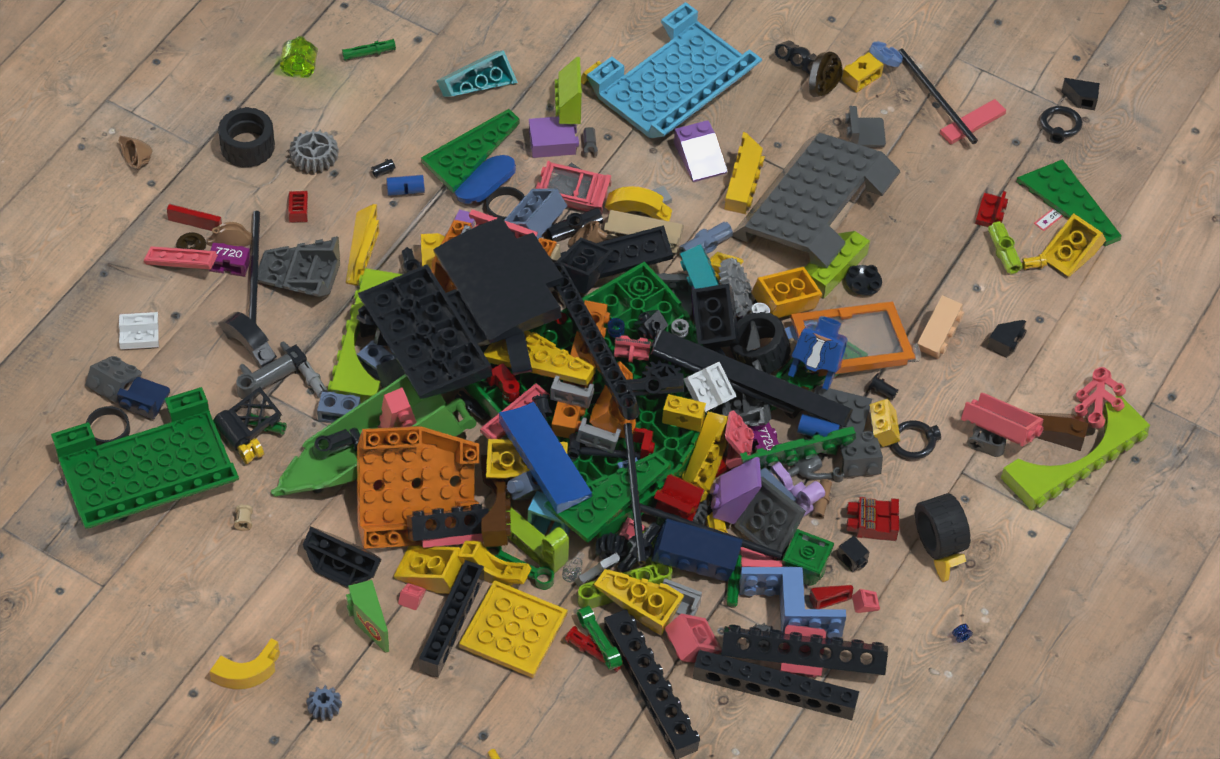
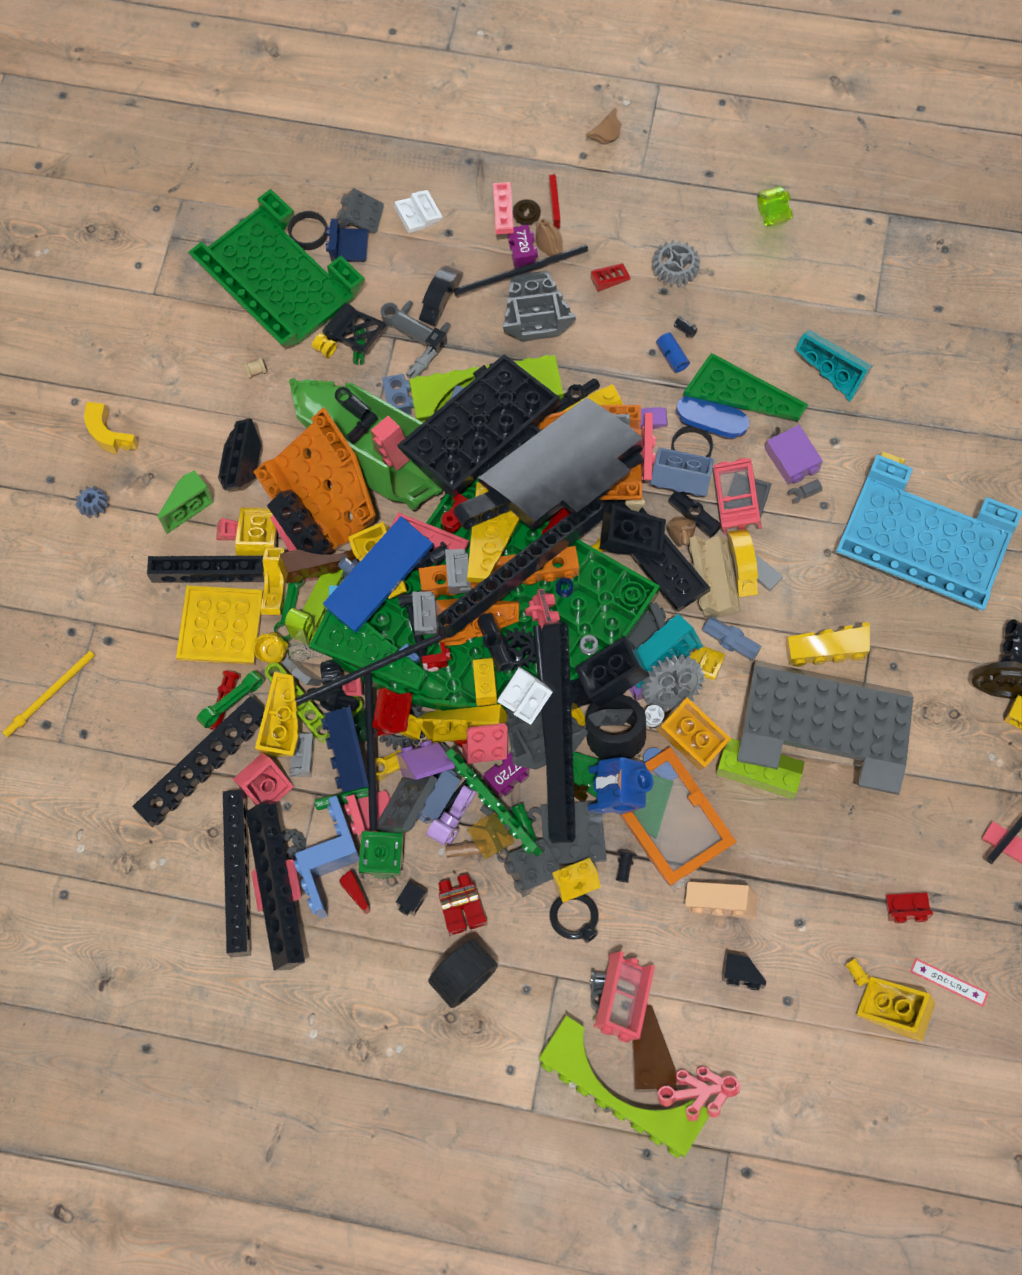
camera: 75 degrees right, 15 degrees up
(246, 121) = (661, 185): black tyre -> none
(363, 242) = (592, 346): yellow wedge -> none
(365, 50) = (825, 265): green pin -> none
(560, 589) = (270, 647): none -> yellow hair
(569, 93) = (844, 449): lime slope -> none
(648, 324) = (575, 615): black brick -> none
(699, 151) = (842, 594): slope -> none
(813, 426) = (539, 817): blue pin -> none
(820, 470) = (490, 836): none -> clear yellow piece
(863, 279) = (753, 805): black dish -> none
(864, 131) = (951, 744): dark grey bracket -> none
(865, 601) = (366, 929): coral slope -> none
(944, 564) = (433, 997): yellow tile -> none
(962, 633) = (359, 1032): clear blue bush -> none
(1005, 248) = (851, 944): lime piece -> none
(1067, 196) = (969, 981): green wing -> none

